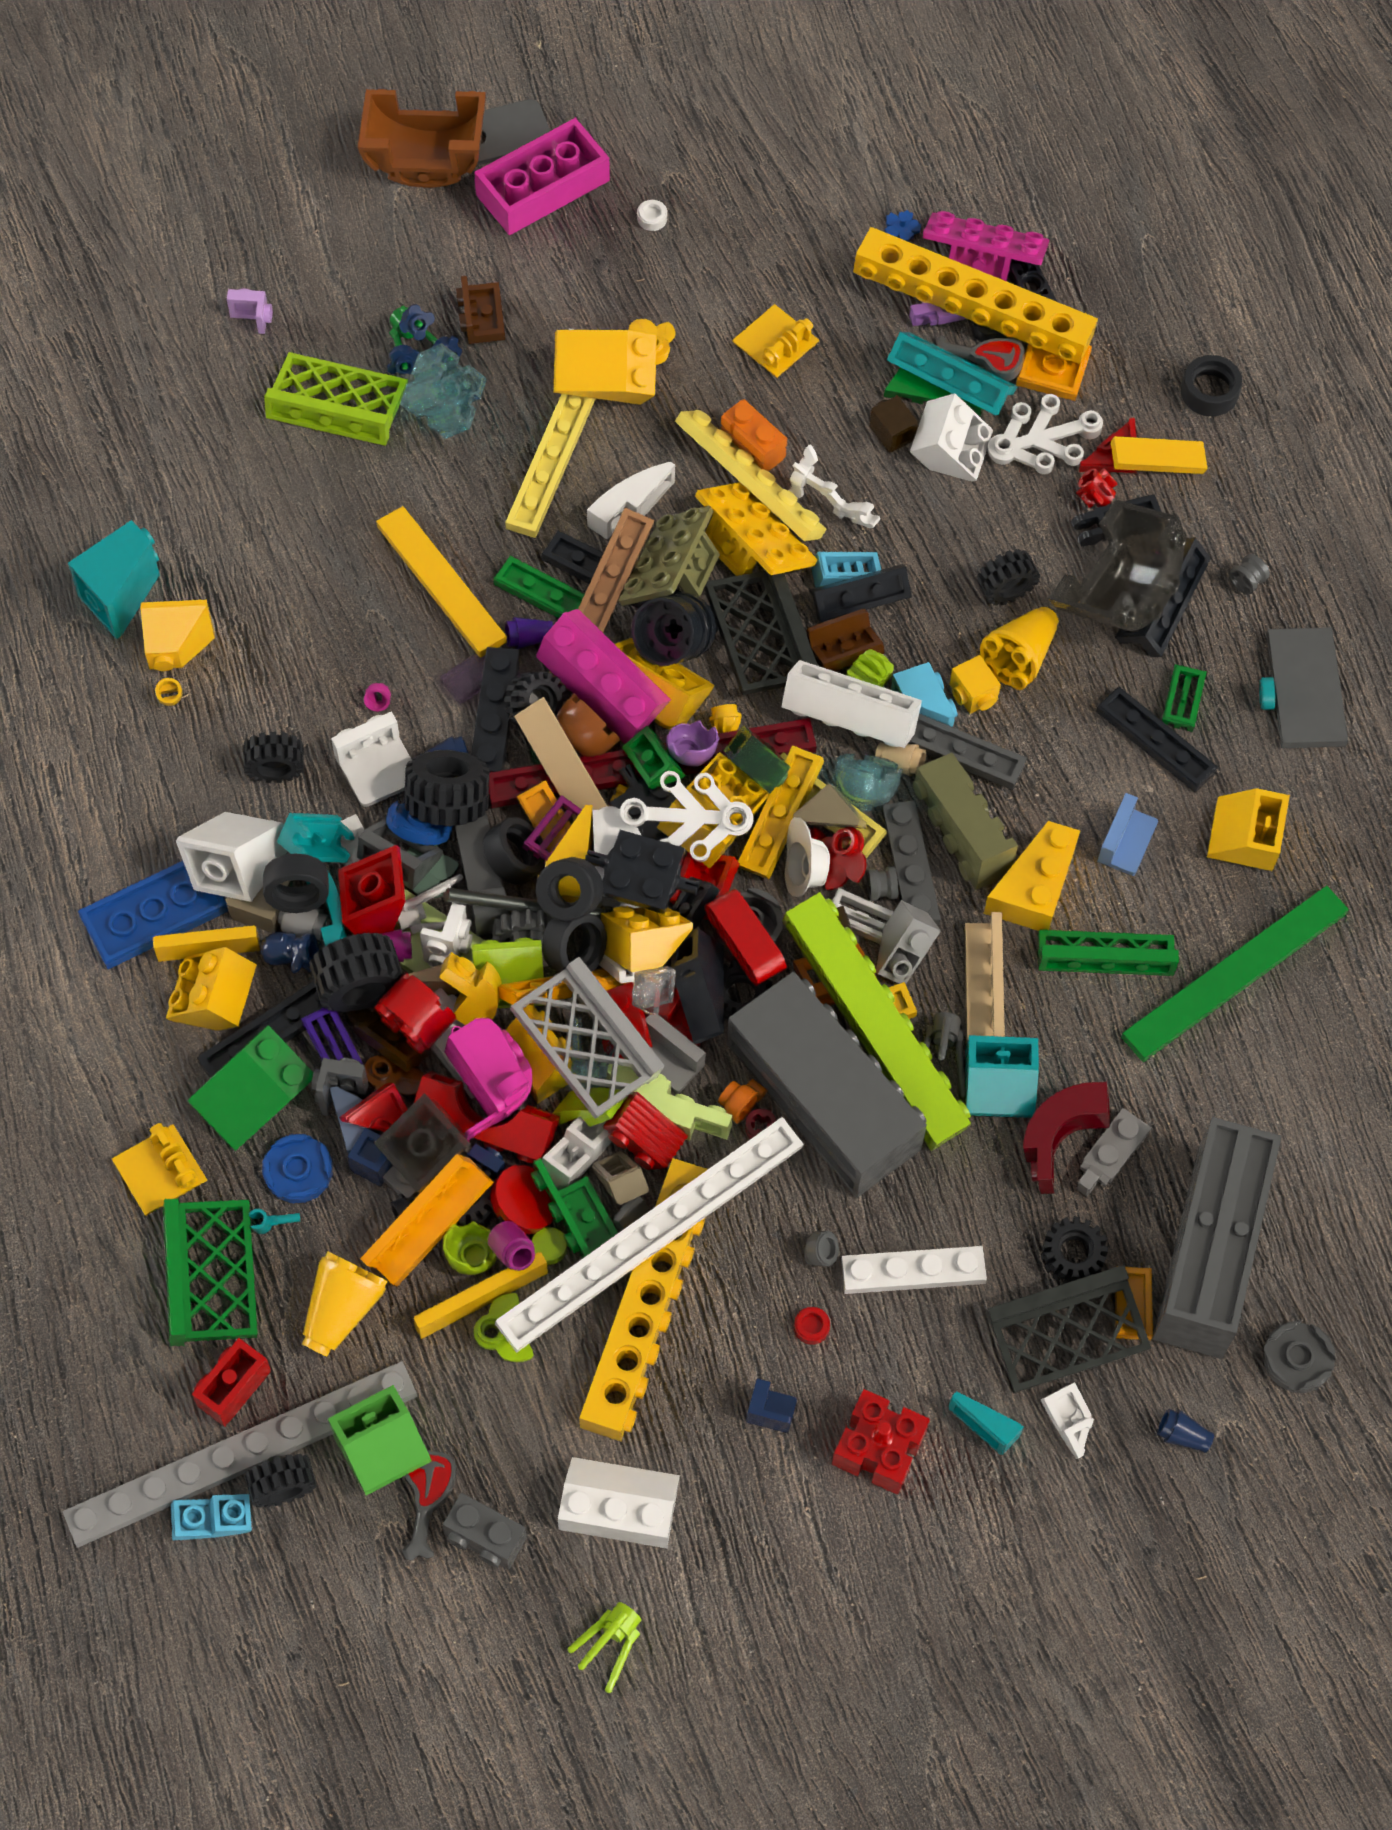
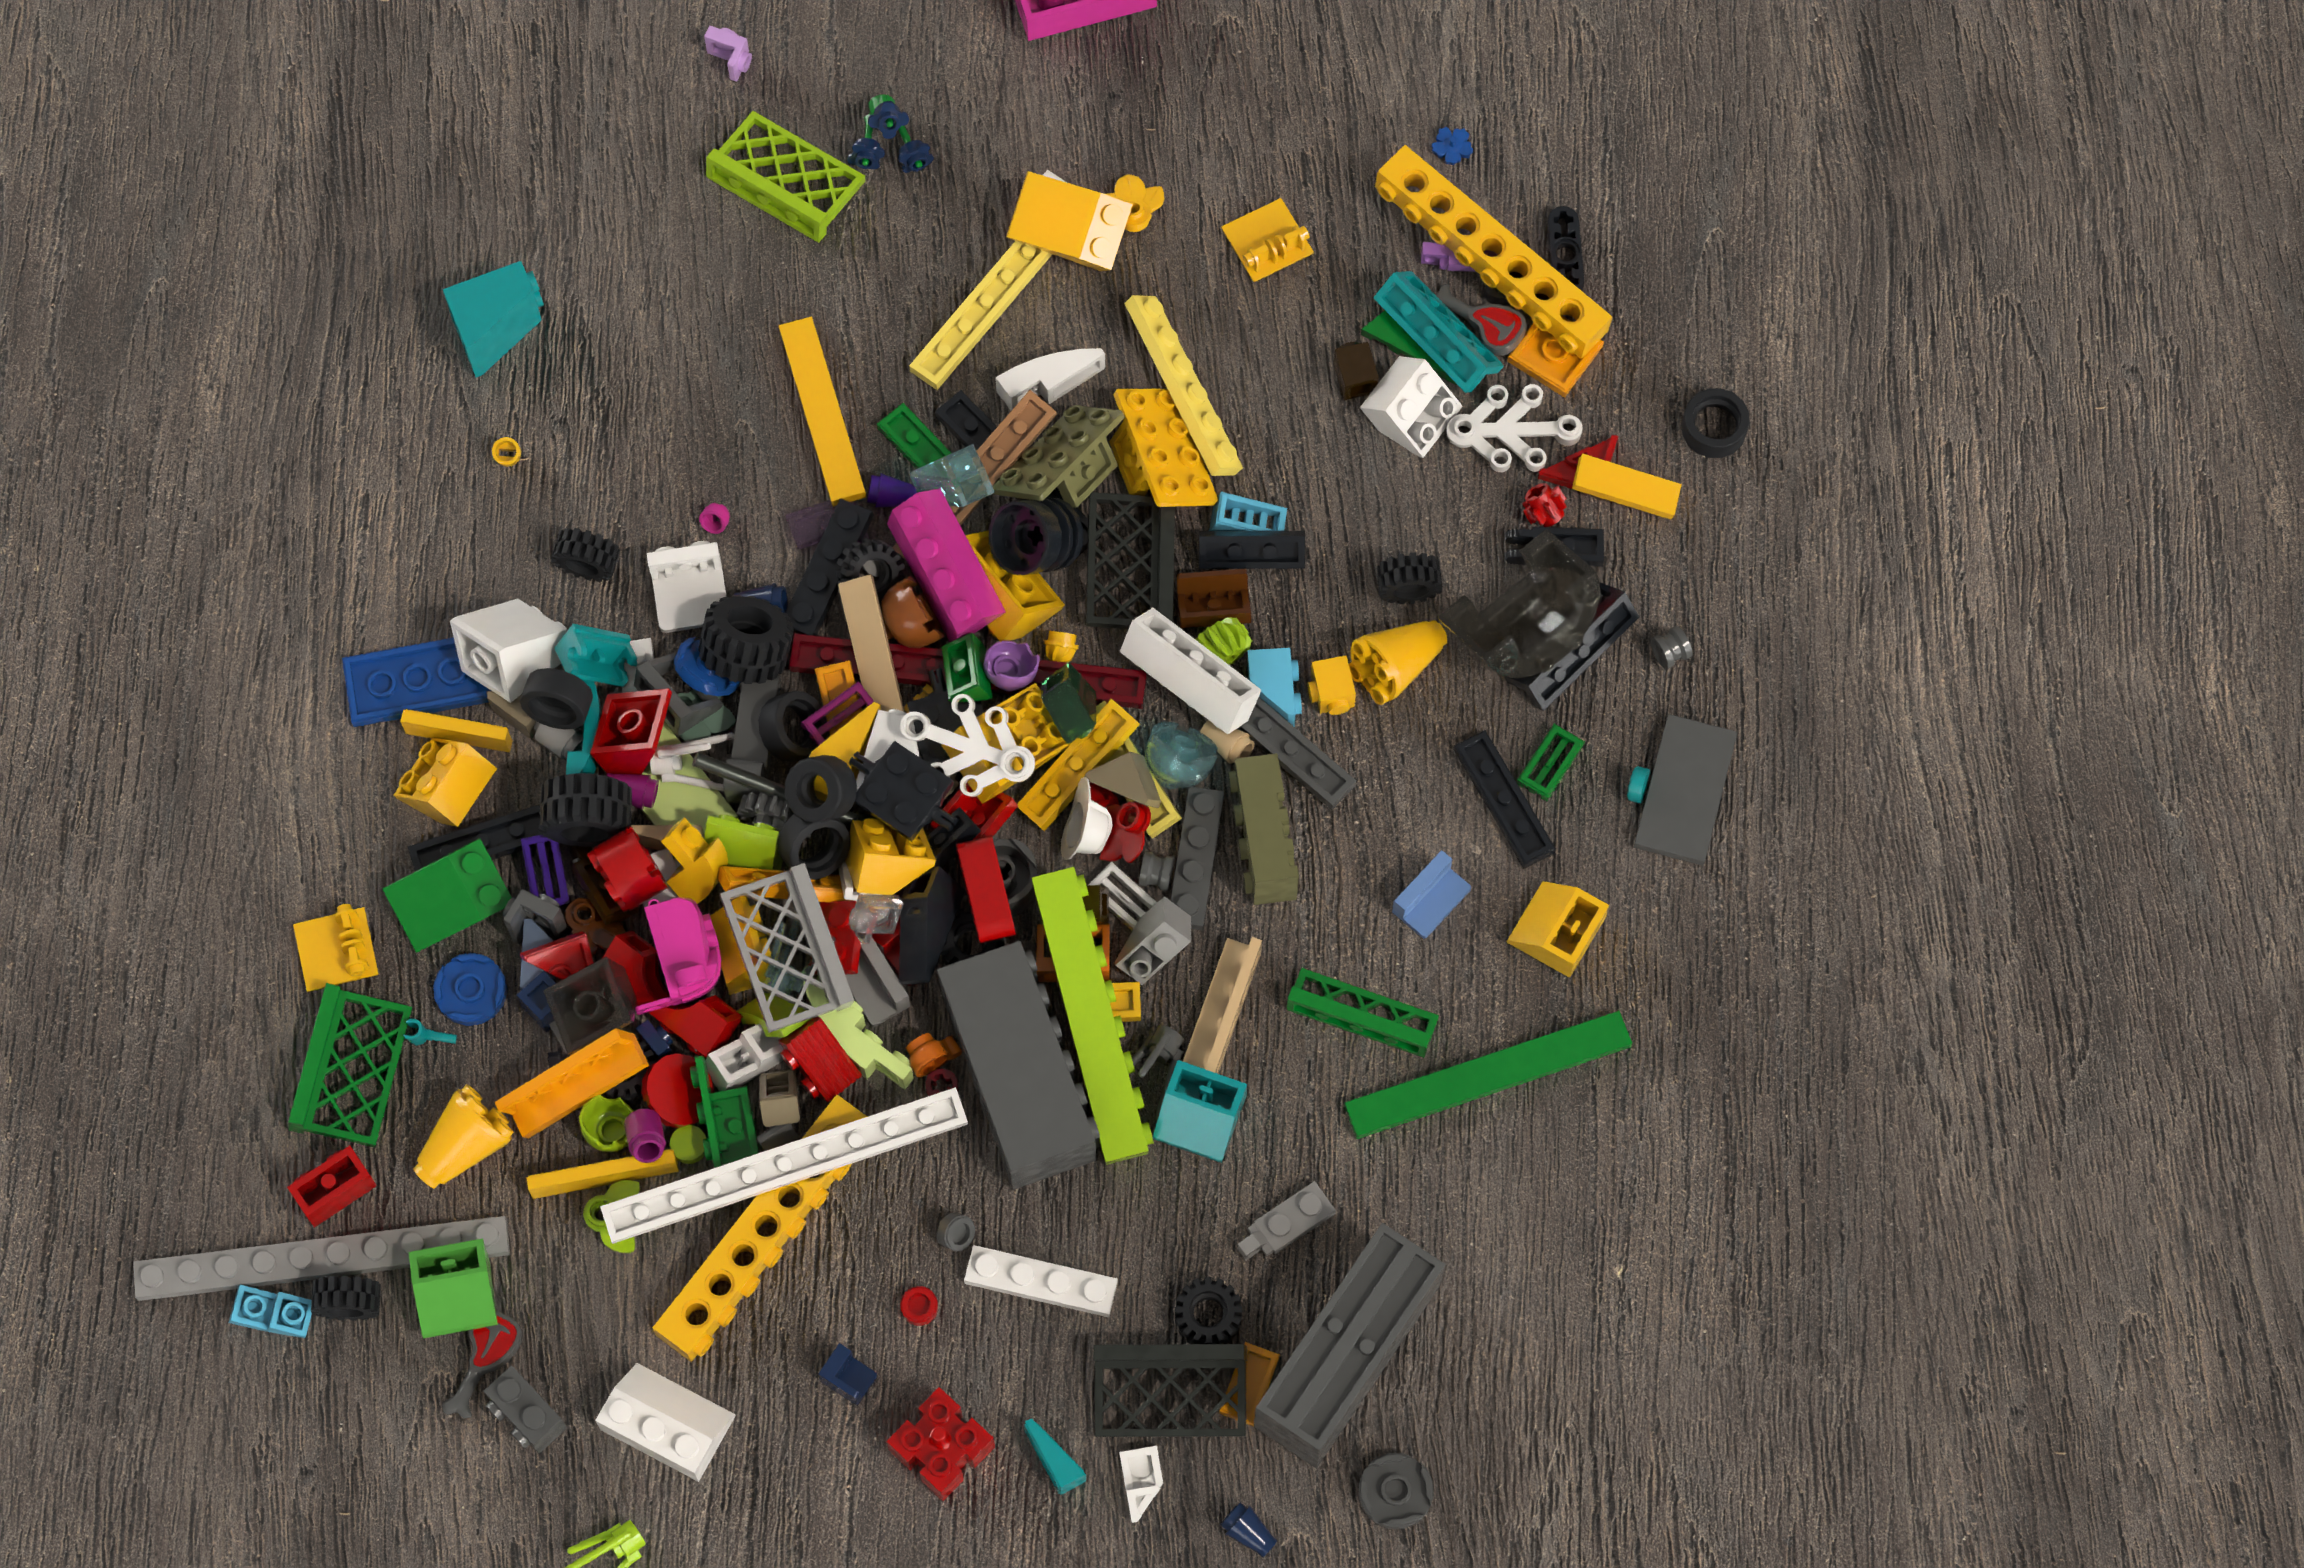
camera: 20 degrees right, 5 degrees up
(175, 632) = (530, 391): yellow slope -> none
(286, 948) = (533, 760): dark blue animal -> none
(443, 391) = (892, 203): clear light blue brick -> none
(453, 938) = (694, 803): white bracket -> none
(482, 311) = (966, 121): reddish brown bracket -> none
(591, 592) = (957, 475): none -> clear light blue slope
(652, 215) = (1188, 59): white tile -> none
(755, 435) = (1202, 343): orange brick -> none
(802, 475) = (1234, 403): white piece -> none
(983, 245) = (1529, 196): dark pink bracket -> none
(1035, 881) = (1316, 914): yellow wedge -> none
(1059, 1116) = (1240, 1172): dark red arch -> none

